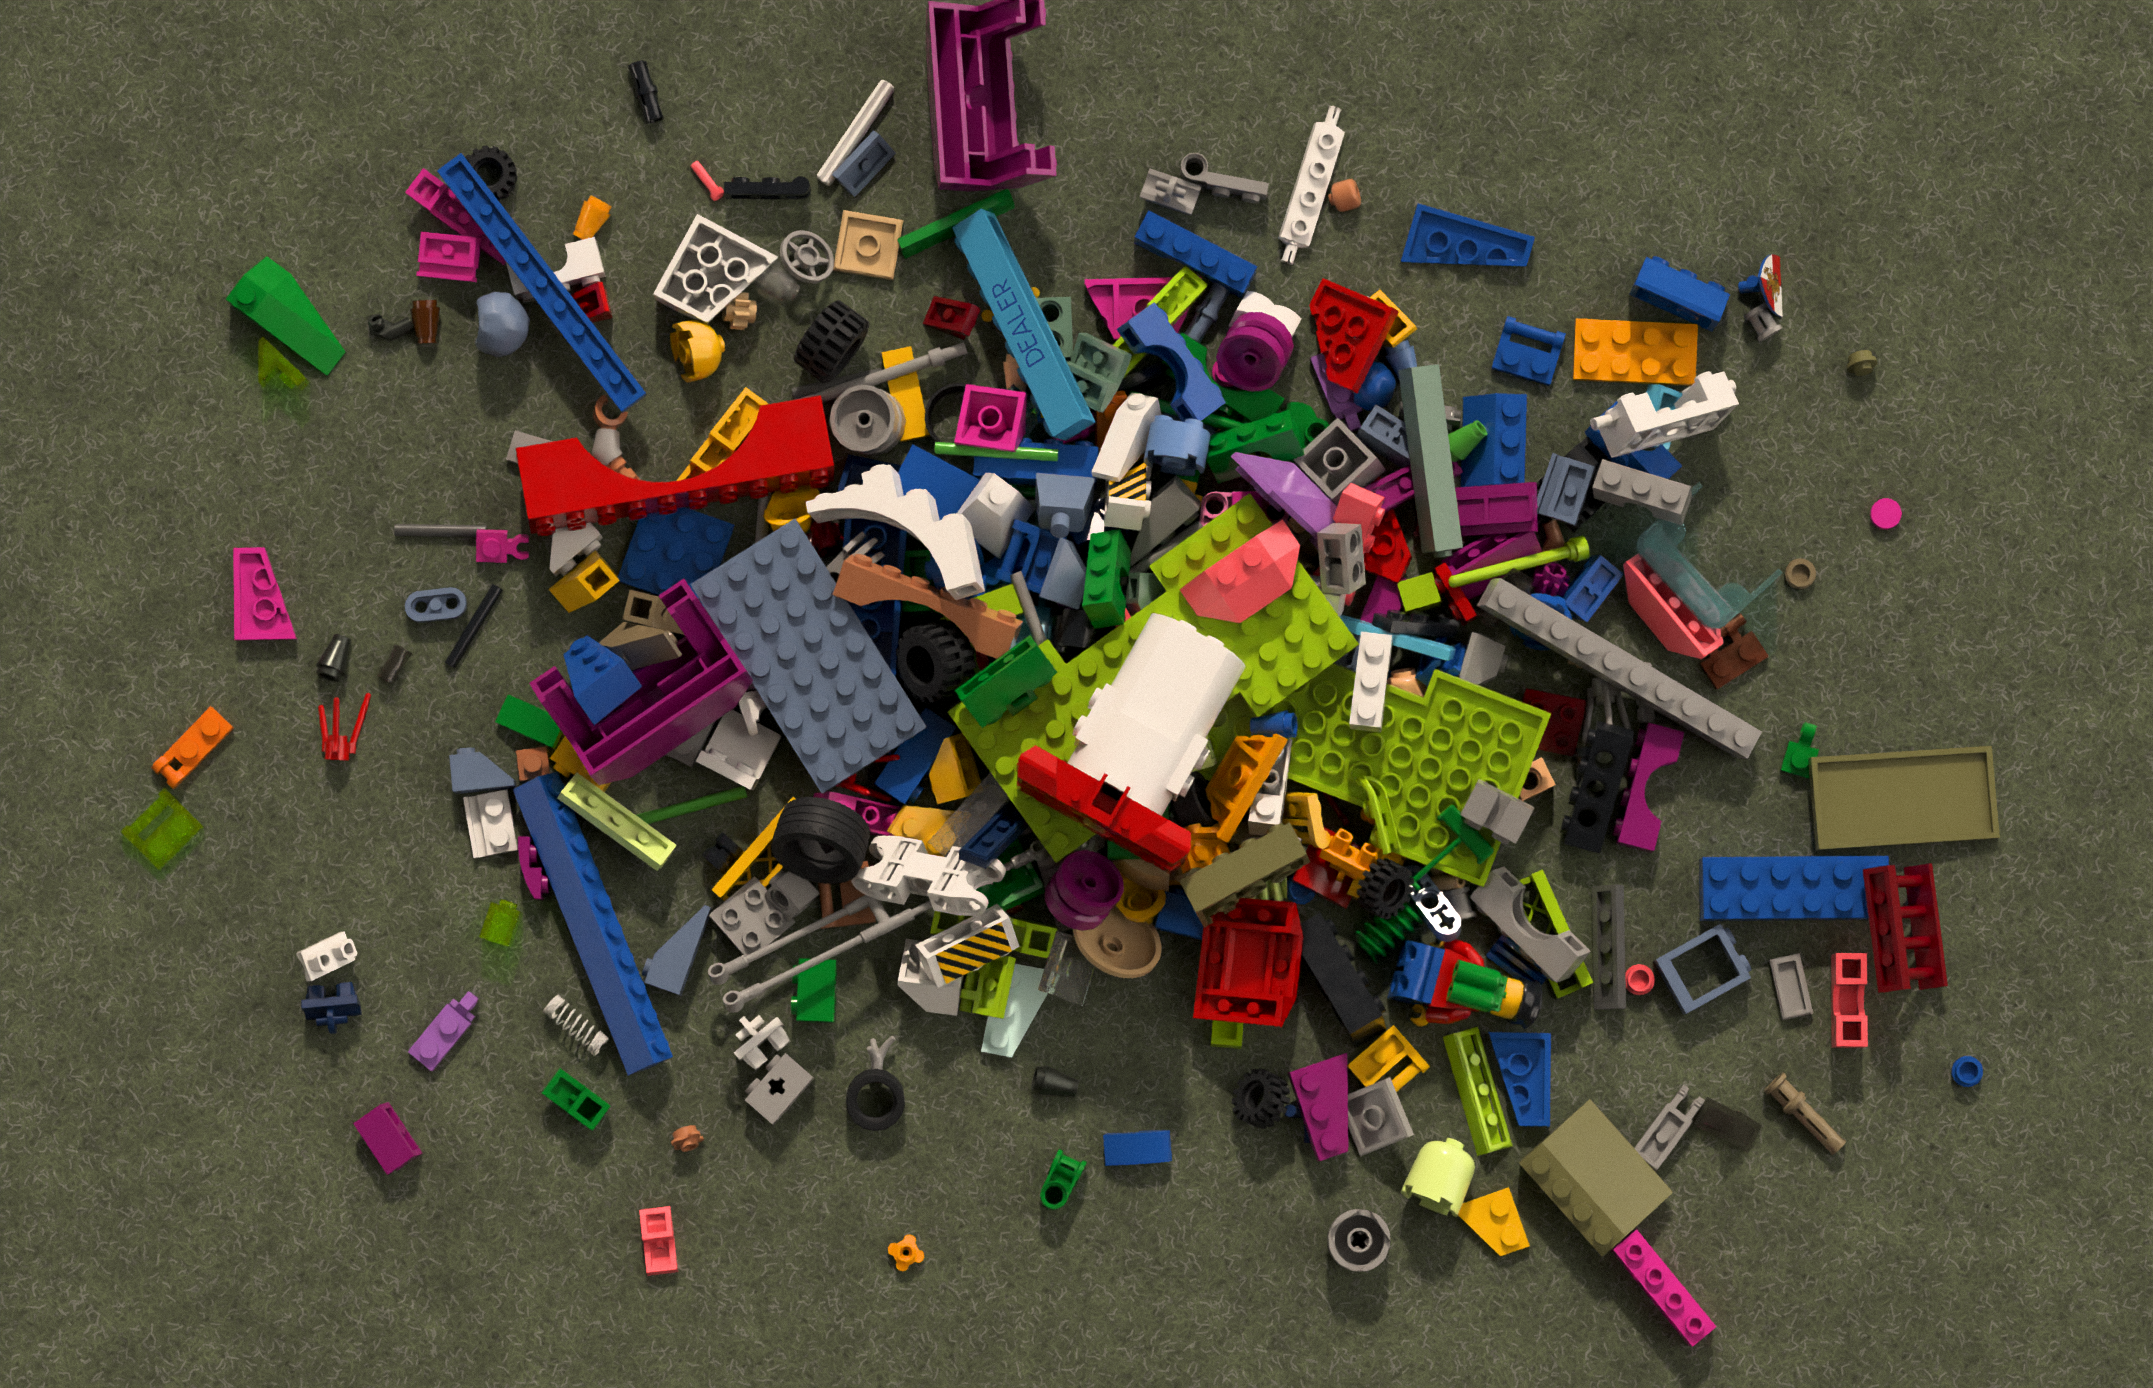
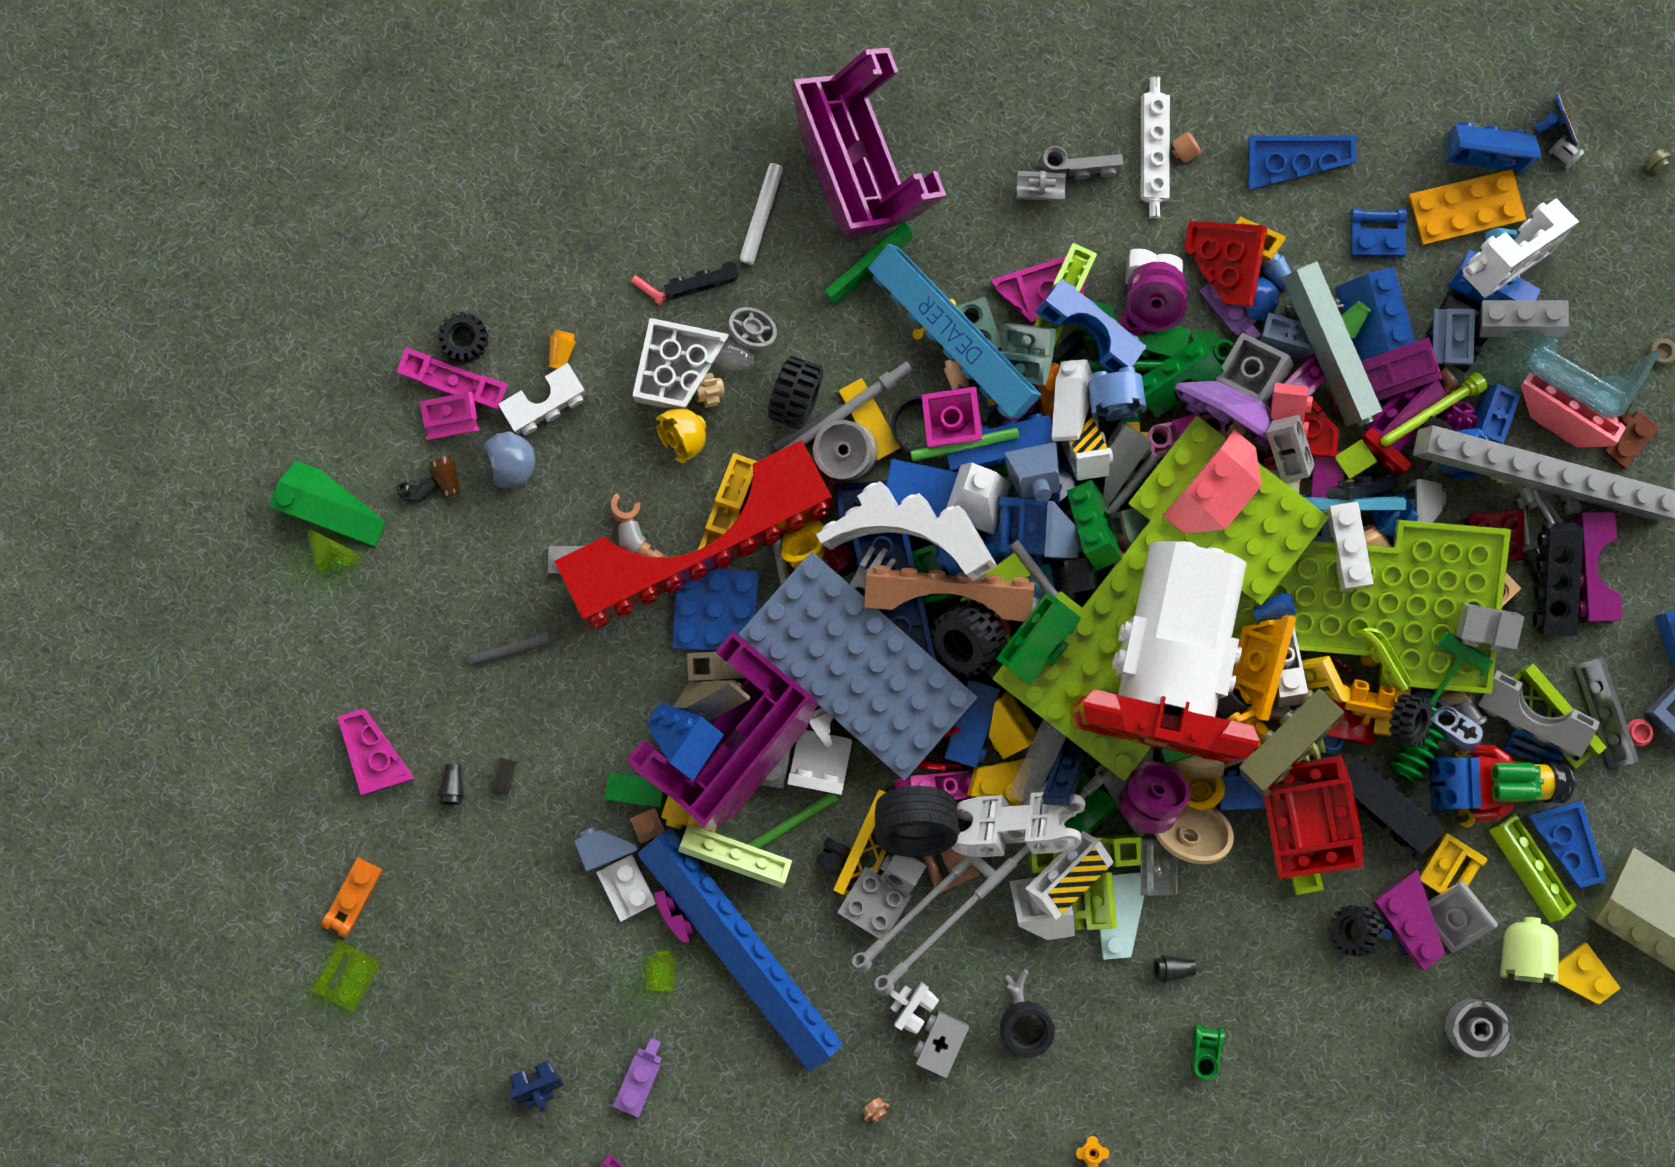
camera: 15 degrees left, 0 degrees up
(327, 955) = (519, 1045): white hips -> none
(335, 745) = (475, 860): red plant -> none
(436, 605) = (525, 714): sand blue plate -> none
(473, 626) = (562, 722): black bar -> none
(494, 546) = (561, 649): dark pink plate -> none
(541, 282) = (535, 414): blue plate -> none
(568, 544) = (624, 628): white slope -> none
(576, 1099) = (770, 1105): green brick -> none
(584, 583) = (646, 658): yellow slope -> none
(594, 302) = (578, 423): red slope -> none
(599, 1039) = (775, 1047): white piece -> none
(645, 92) = (575, 230): black pin -> none
(675, 958) = (818, 960): sand blue slope -> none
(815, 993) = (948, 953): green brick -> none
(864, 163) = (776, 236): sand blue plate -> none
(868, 245) = (800, 304): tan tile -> none
(952, 316) = (889, 343): dark red slope -> none
(1137, 1147) = (1262, 1004): blue slope -> none
(1189, 249) = (1058, 226): blue arch -> none
(1207, 312) = (1101, 276): sand blue pin -> none

